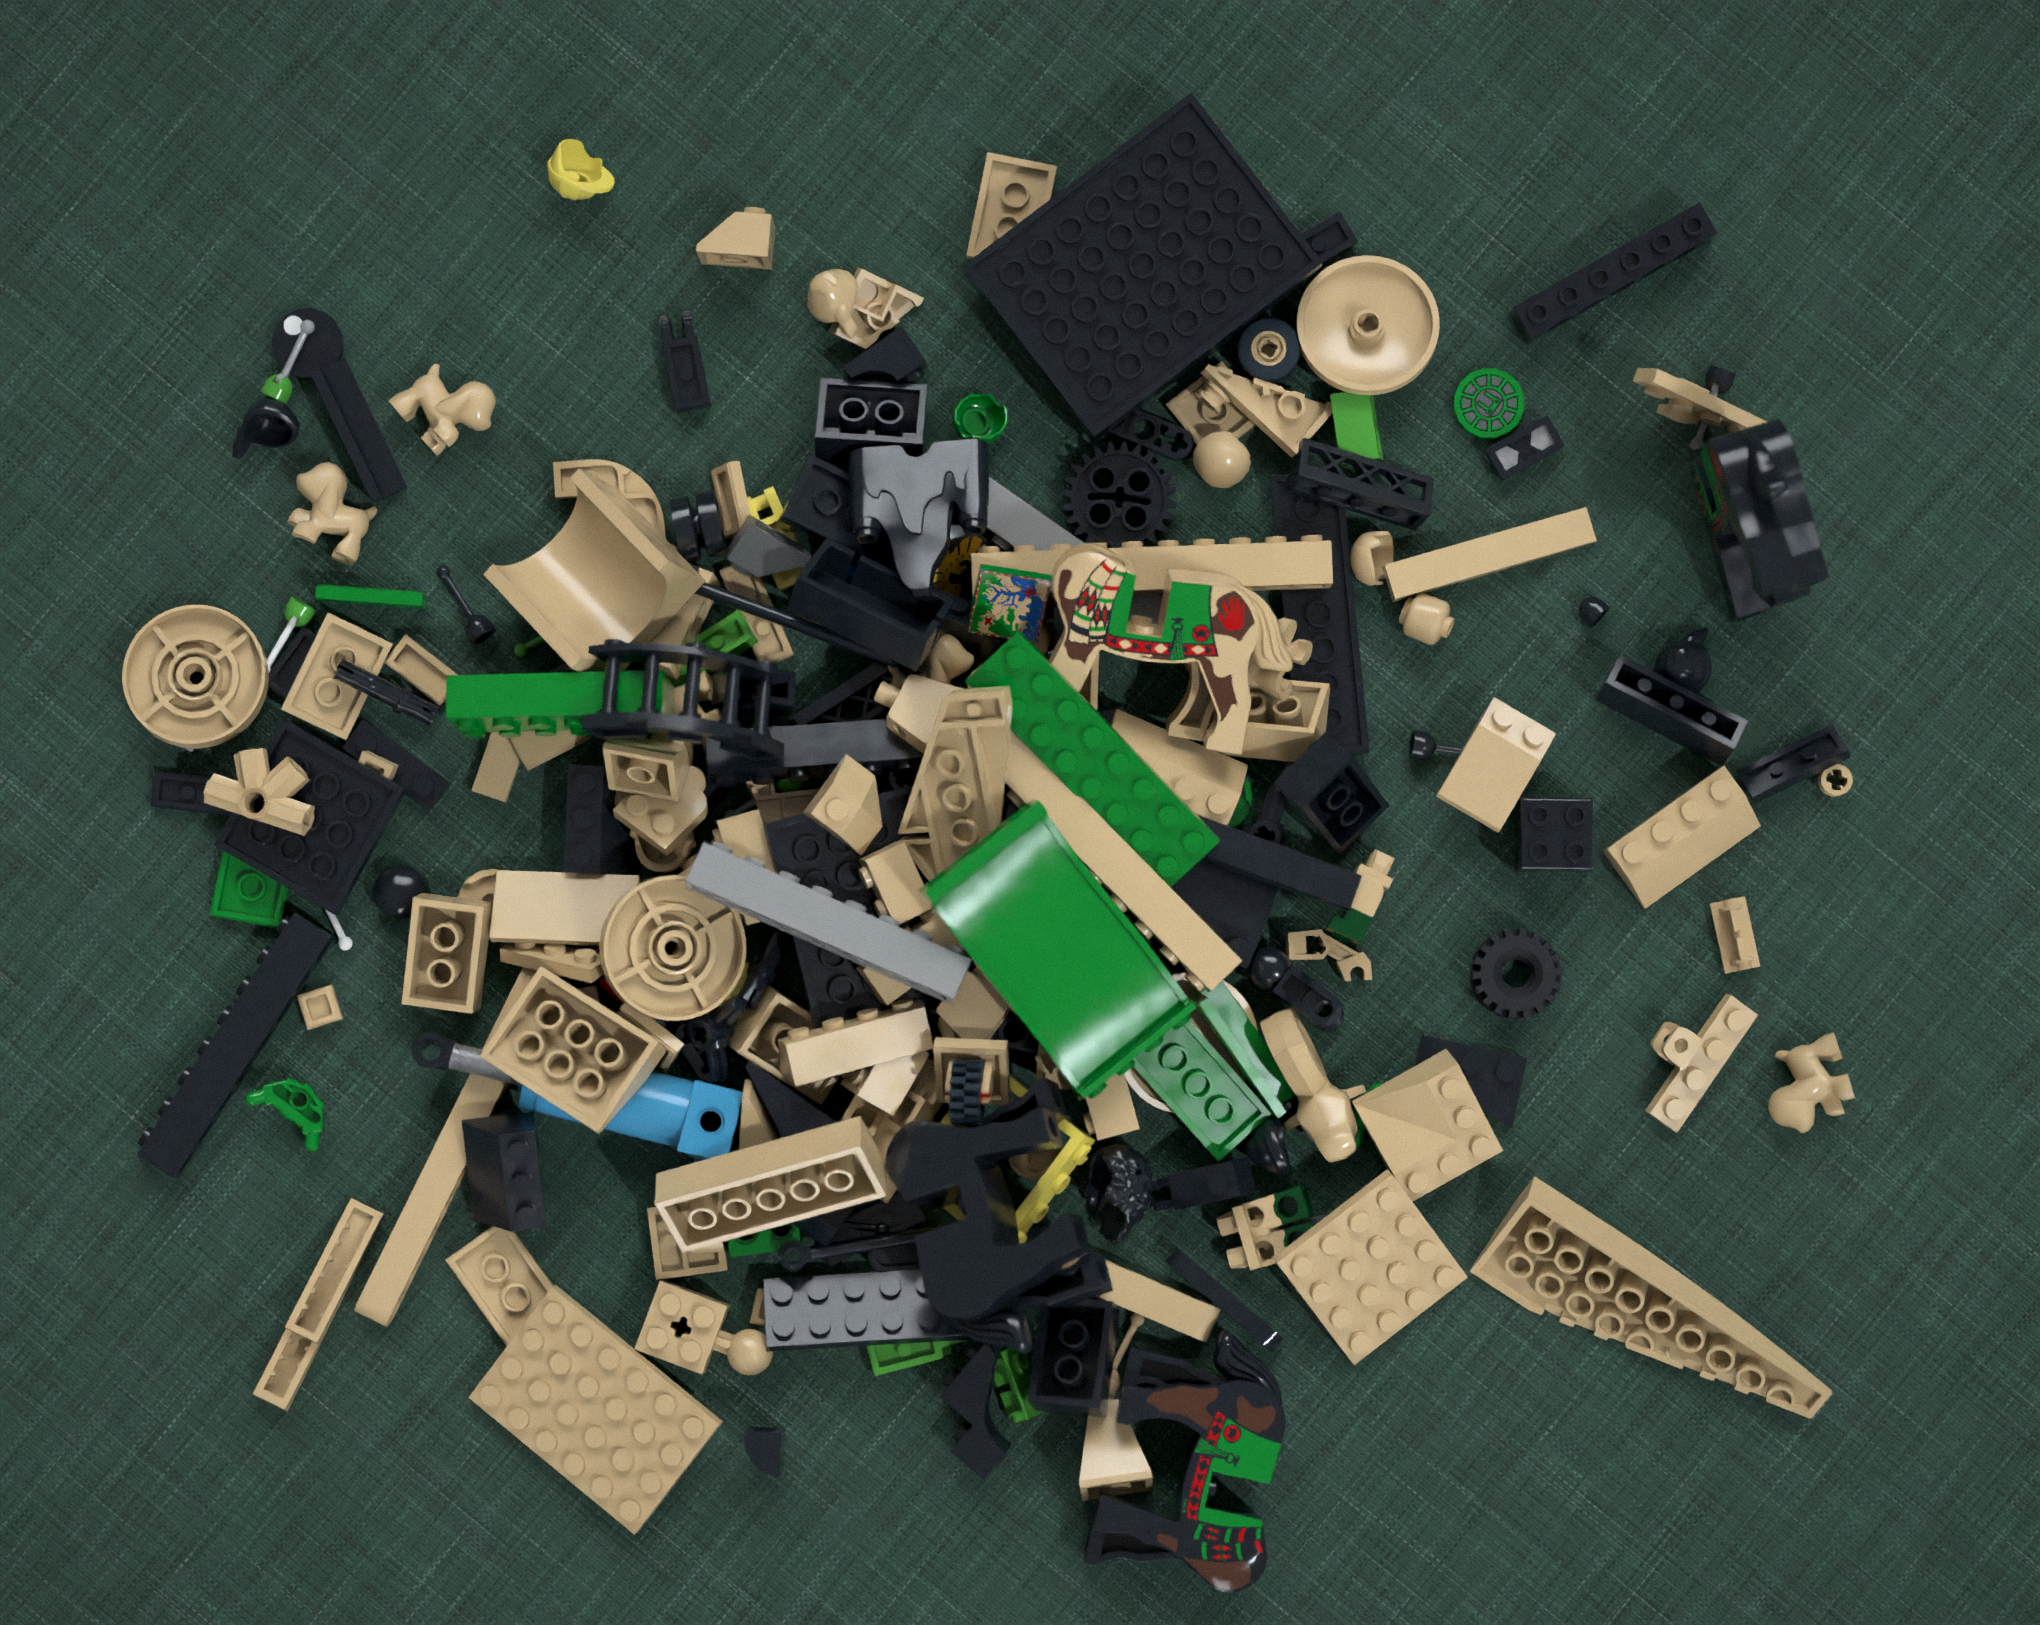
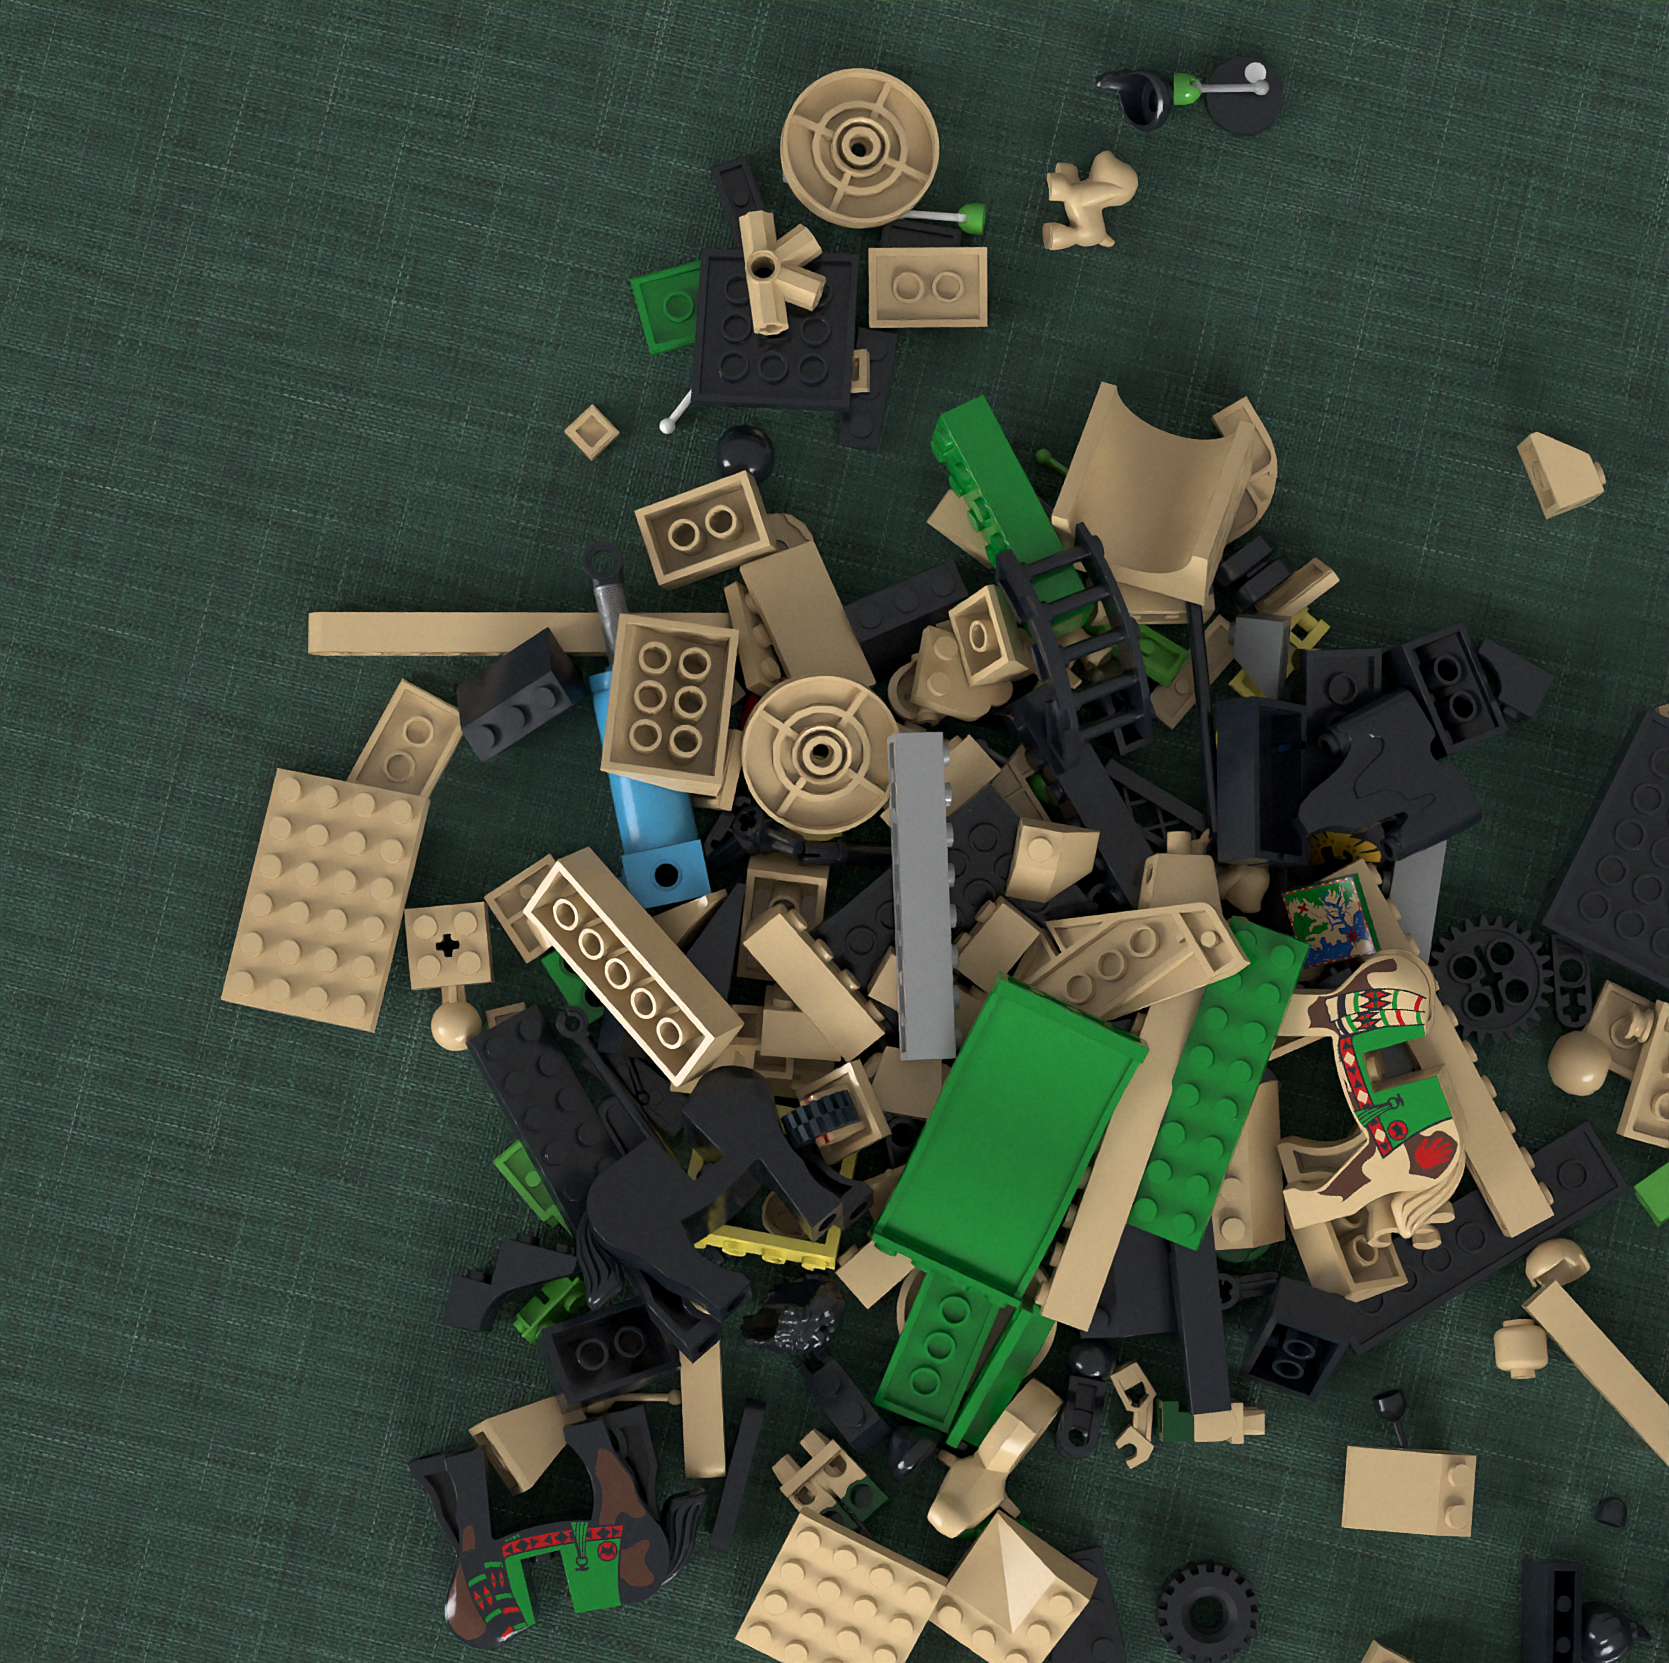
camera: 55 degrees right, 0 degrees up
(235, 1045) = (514, 367): black brick -> none
(296, 1104) = (484, 455): green piece -> none
(318, 1305) = (297, 575): tan slope -> none
(358, 430) = (1183, 188): black fence -> none
(371, 596) = (1023, 282): green tile -> none
(400, 699) = (936, 343): black pin -> none
(420, 669) = (975, 366): tan tile -> none
(468, 405) = (1262, 285): tan animal -> none
(477, 626) = (1044, 401): black hinge -> none
(497, 768) = (913, 491): tan tile -> none
(576, 173) = (1546, 278): light yellow piece -> none
(685, 366) = (1406, 481): black hinge -> none
(766, 1448) = (368, 1089): black brick -> none
(832, 298) = (1548, 594): tan hat -> none
(876, 308) = (1557, 637): tan slope -> none
(980, 418) = (1501, 800): green hair -> none
(1356, 495) = (1612, 1225): black fence -> none
(1554, 835) = (1366, 1584): black piece -> none

